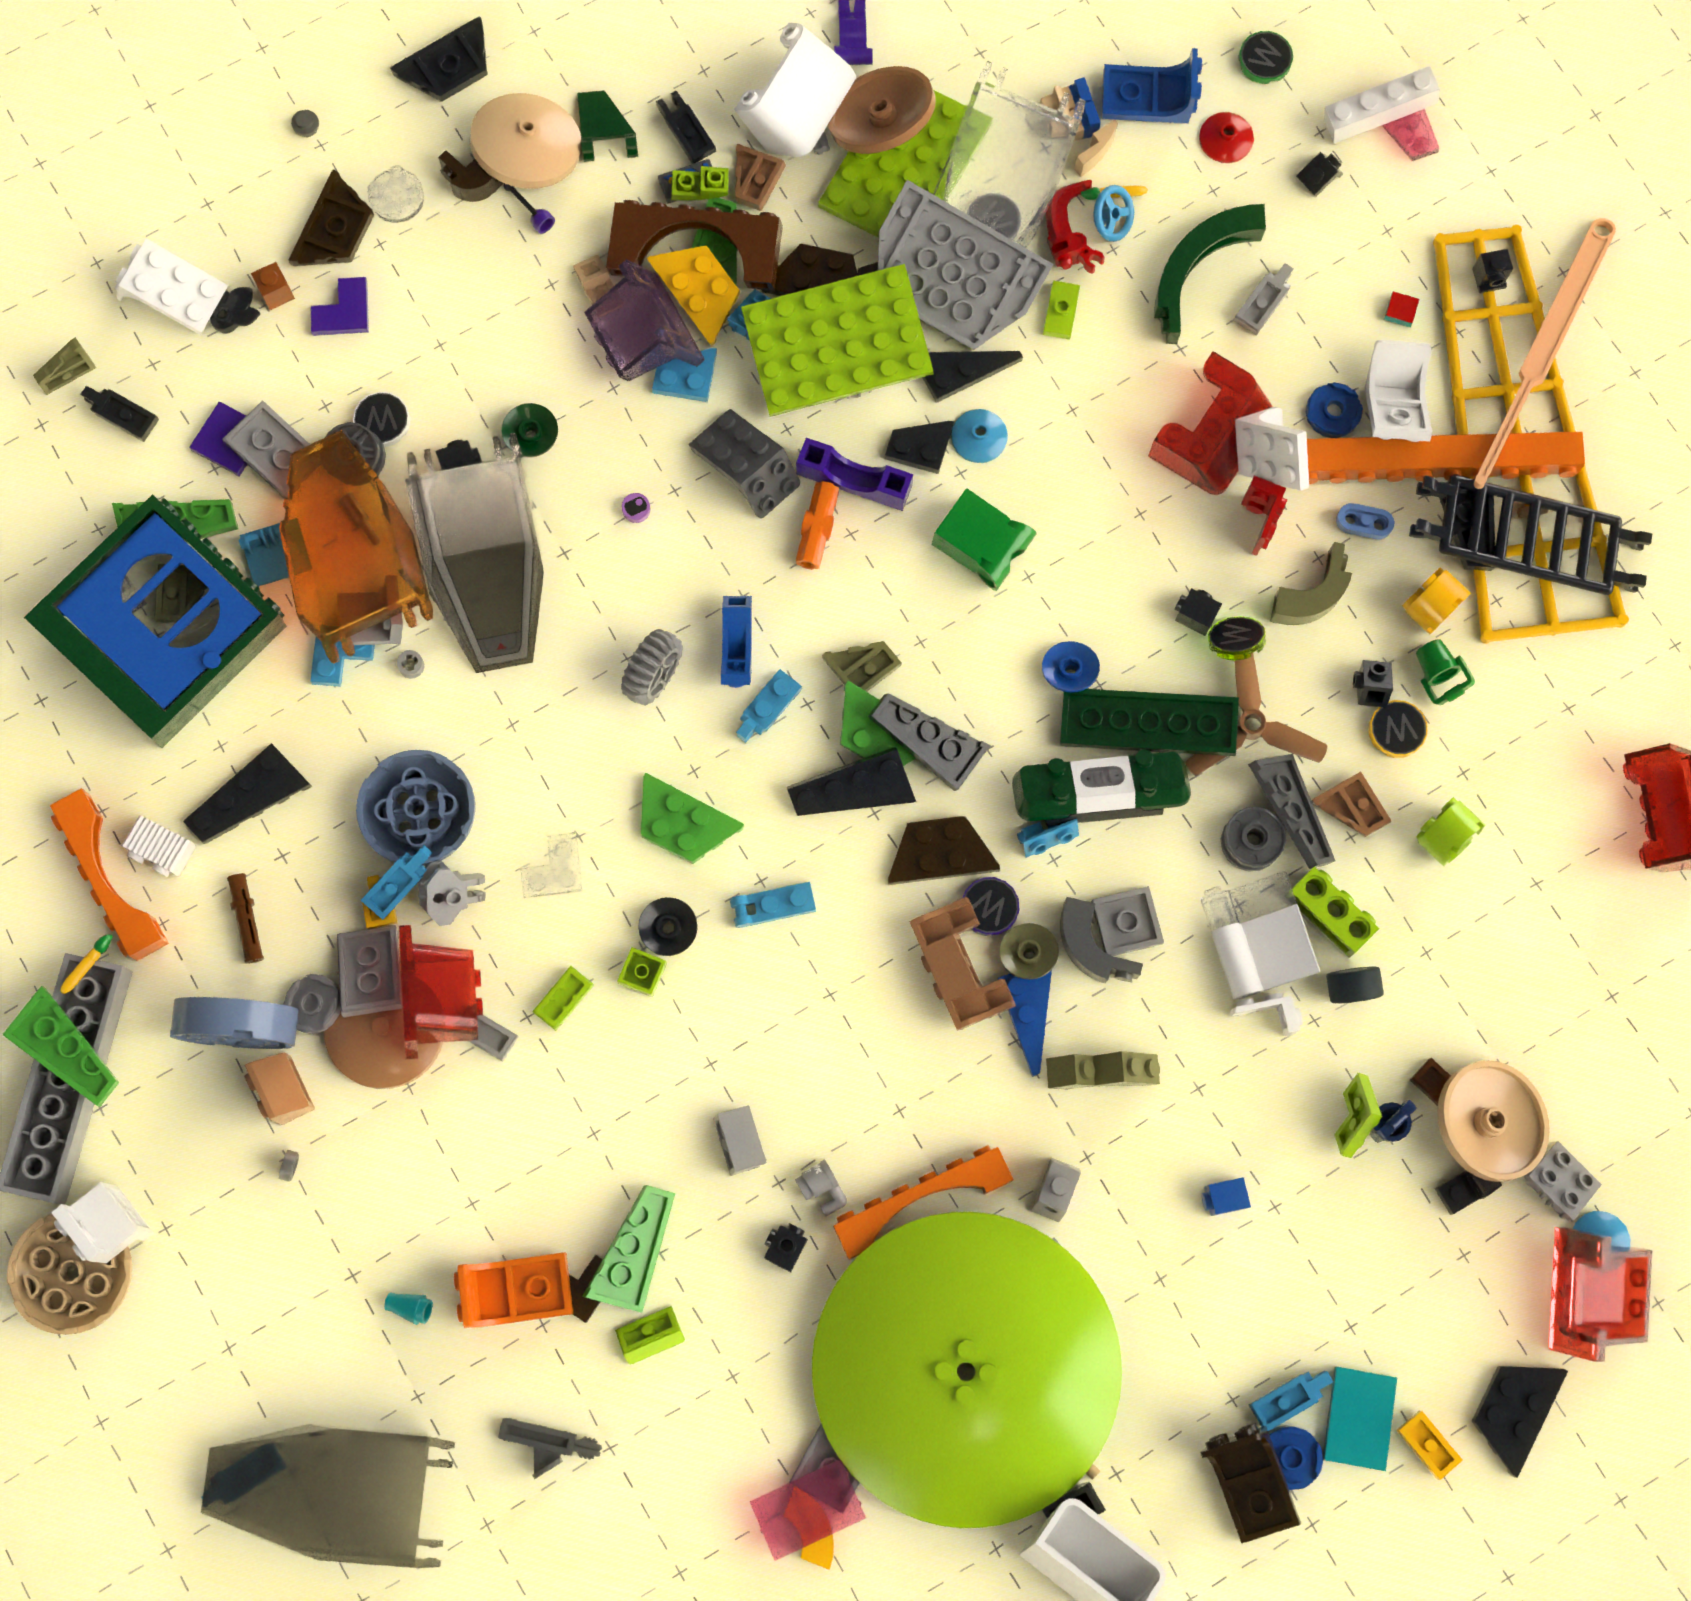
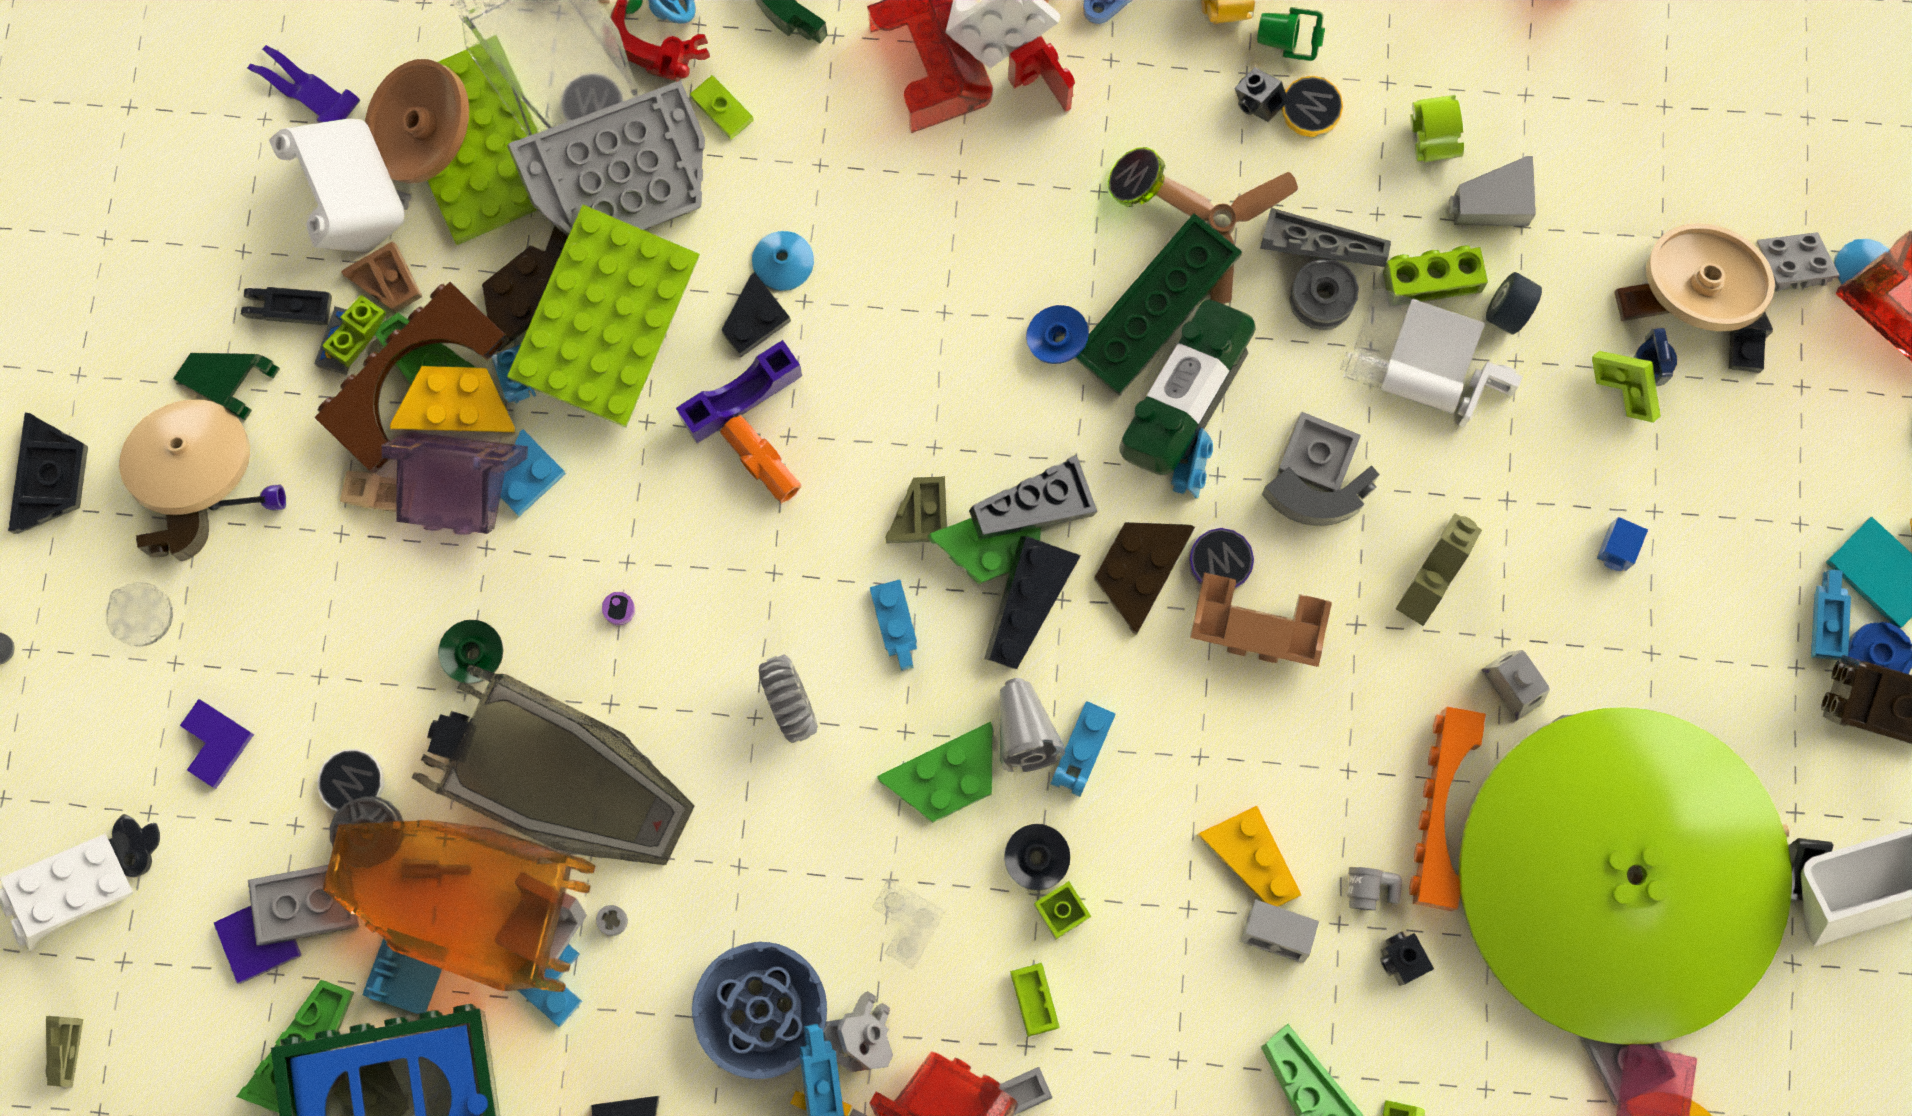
camera: 50 degrees left, 0 degrees up
(121, 412) = (149, 1025): black hinge -> none
(272, 285) = (138, 791): dark orange brick -> none
(333, 226) = (124, 693): dark brown wing -> none
(736, 641) = (817, 607): blue arch -> none
(748, 460) = (651, 476): dark grey bracket -> none
(755, 851) = (1025, 729): none -> light grey cone
(783, 1084) = (1253, 855): none -> yellow wing
(963, 369) = (712, 227): black wing -> none
(982, 538) = (883, 325): green piece -> none
(1025, 939) = (1284, 540): olive dish -> none
(1030, 1015) = (1326, 580): blue wing -> none
(1197, 610) = (1086, 192): black brick -> none
(1306, 606) = (1145, 107): olive arch -> none
(1354, 805) = (1354, 189): medium nougat wing -> none
(1432, 915) = (1497, 197): none -> light grey slope

